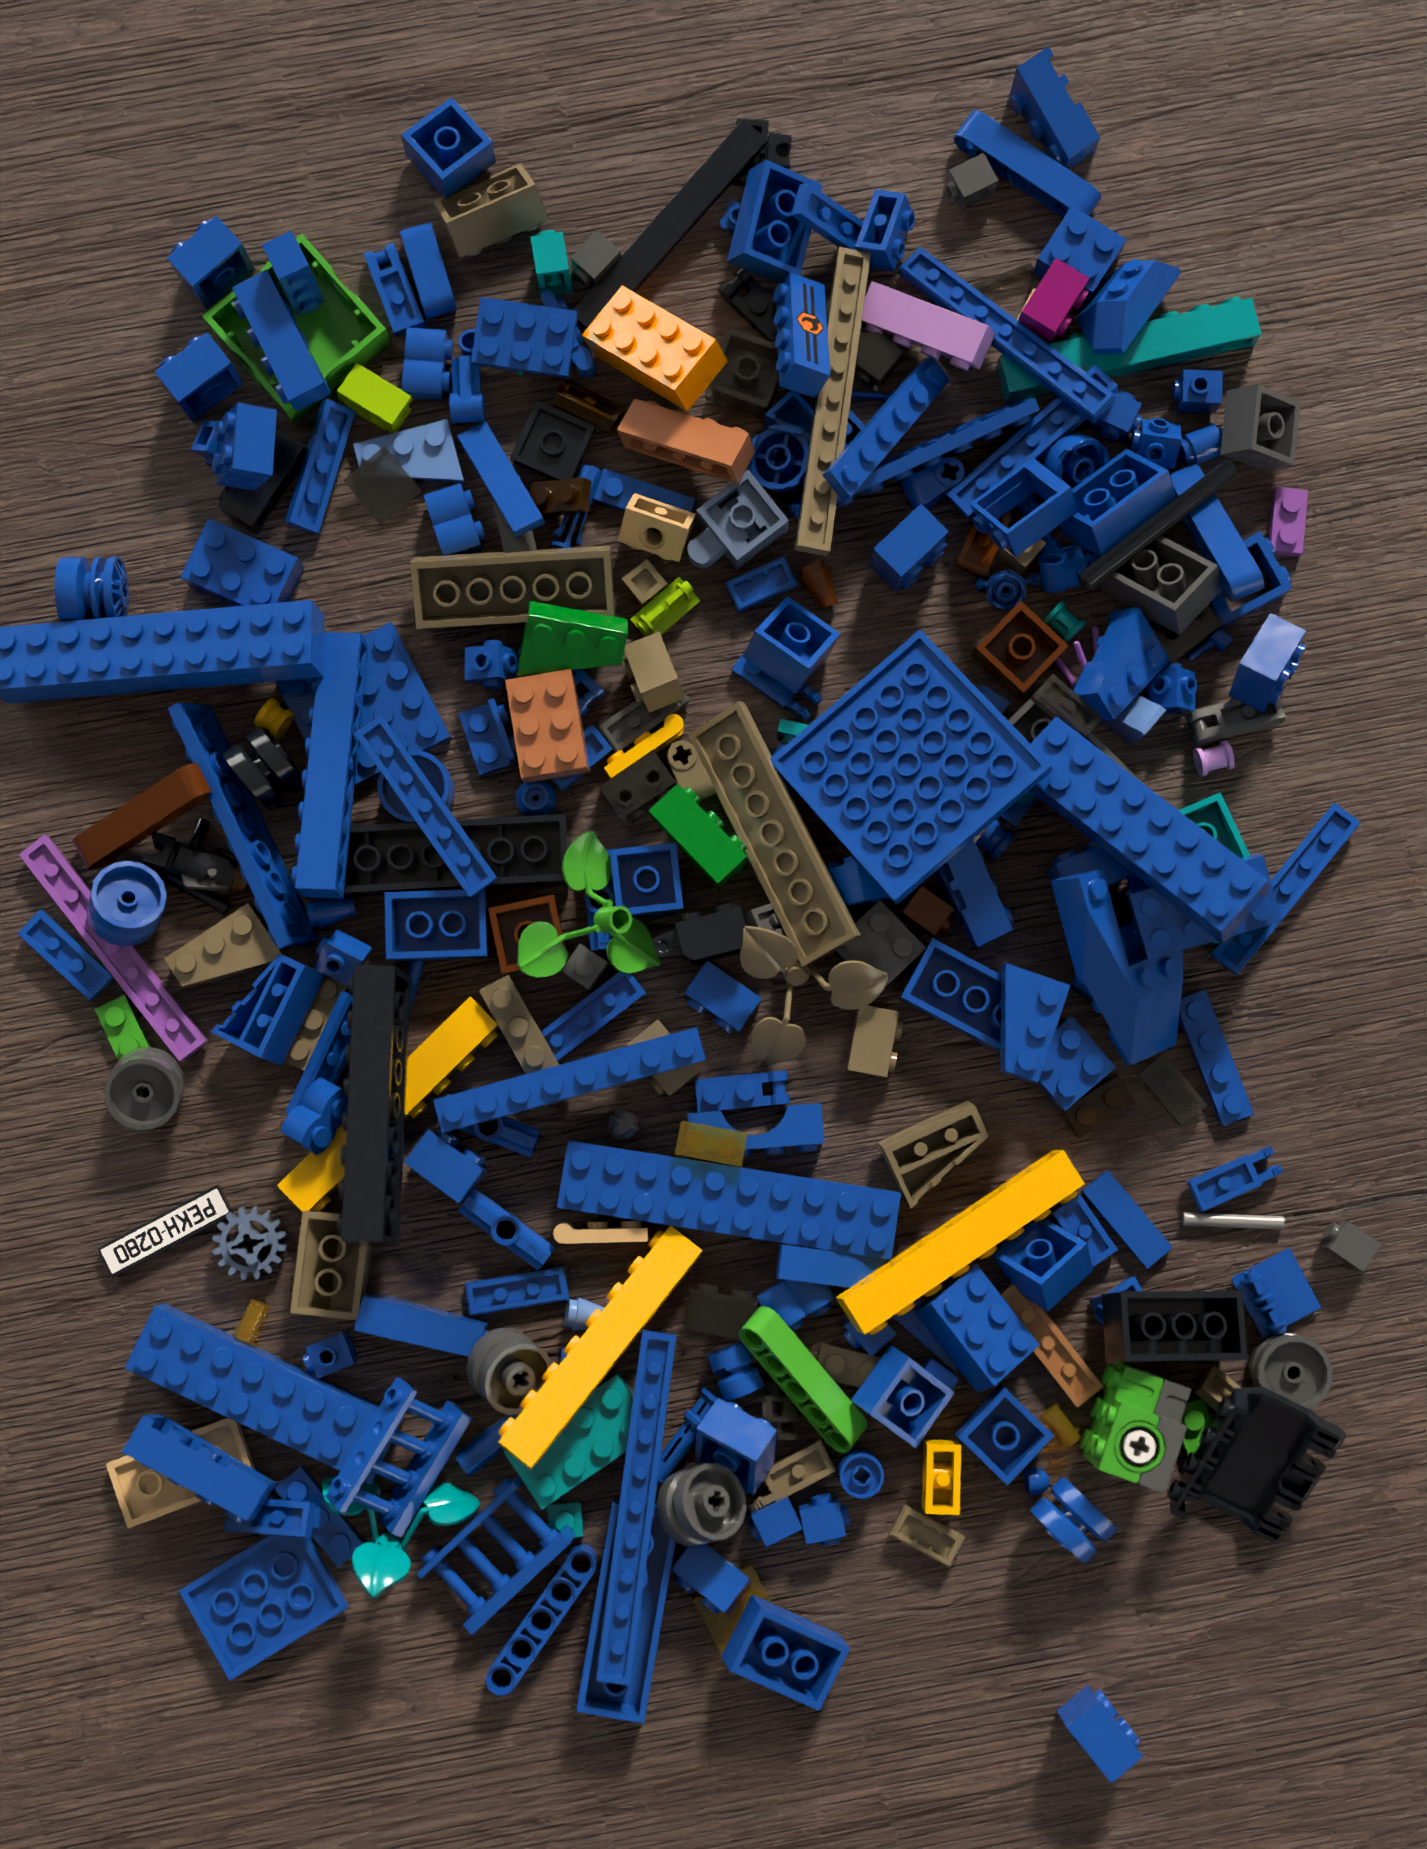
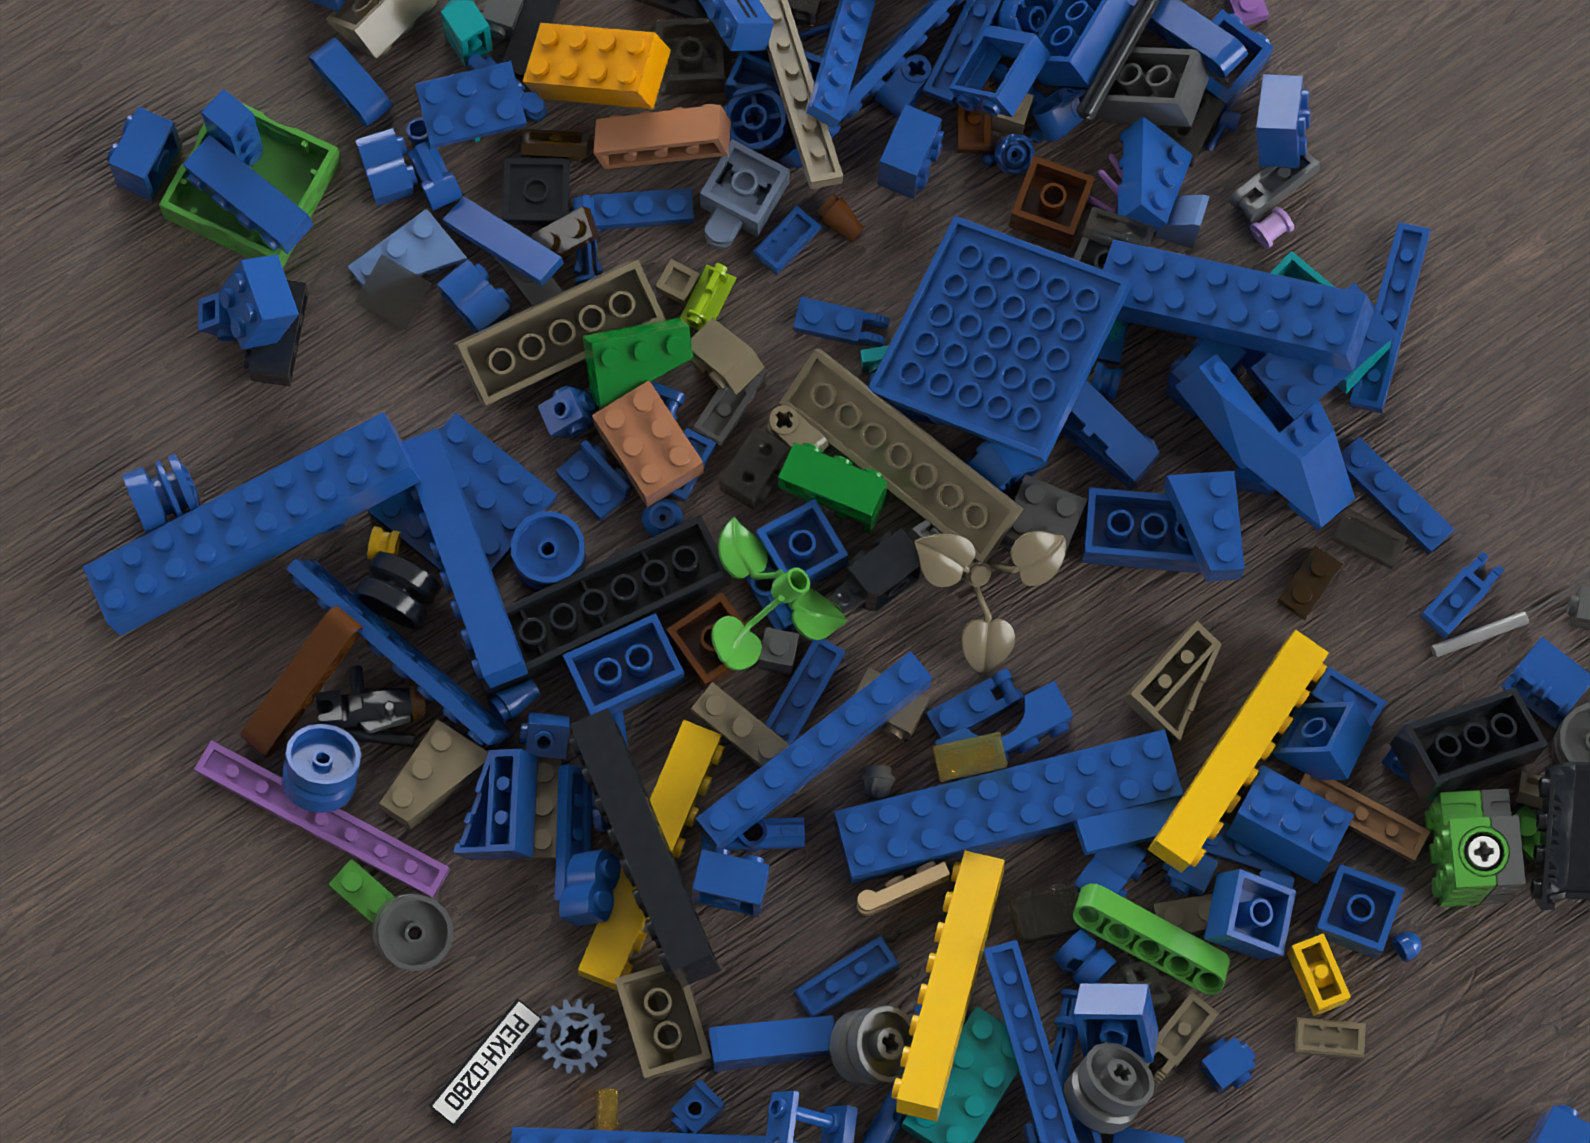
camera: 25 degrees left, 10 degrees down
(66, 955) = (279, 845): blue plate -> none
(199, 376) = (179, 260): blue brick -> none
(240, 568) = (291, 419): blue brick -> none
(320, 466) = (326, 299): blue plate -> none
(374, 399) = (351, 217): lime hinge -> none
(394, 290) = (325, 112): blue plate -> none
(426, 806) = (569, 558): blue plate -> none
(525, 1242) = (834, 927): blue piece -> none
(578, 1312) = (913, 972): medium blue cone -> none
(644, 744) = (743, 427): yellow plate -> none
(672, 522) = (654, 216): tan brick -> none
(721, 997) = (918, 626): blue brick -> none
(775, 1521) = (1183, 1083): blue brick -> none
(791, 644) = (840, 280): blue brick -> none
(860, 1473) = (1242, 1004): blue wheel -> none
(873, 1041) = (1076, 608): dark tan brick -> none
(928, 912) = (1074, 471): reddish brown brick -> none
(1060, 1426) = (1413, 889): clear yellow pin -> none
(1064, 622) = (1081, 160): teal bush -> none
(1072, 1065) = (1268, 553): blue brick -> none
(1073, 1520) = (1457, 959): blue wheel -> none
(1126, 1219) = (1382, 673): blue tile -> none
(1173, 689) = (1208, 177): blue brick -> none

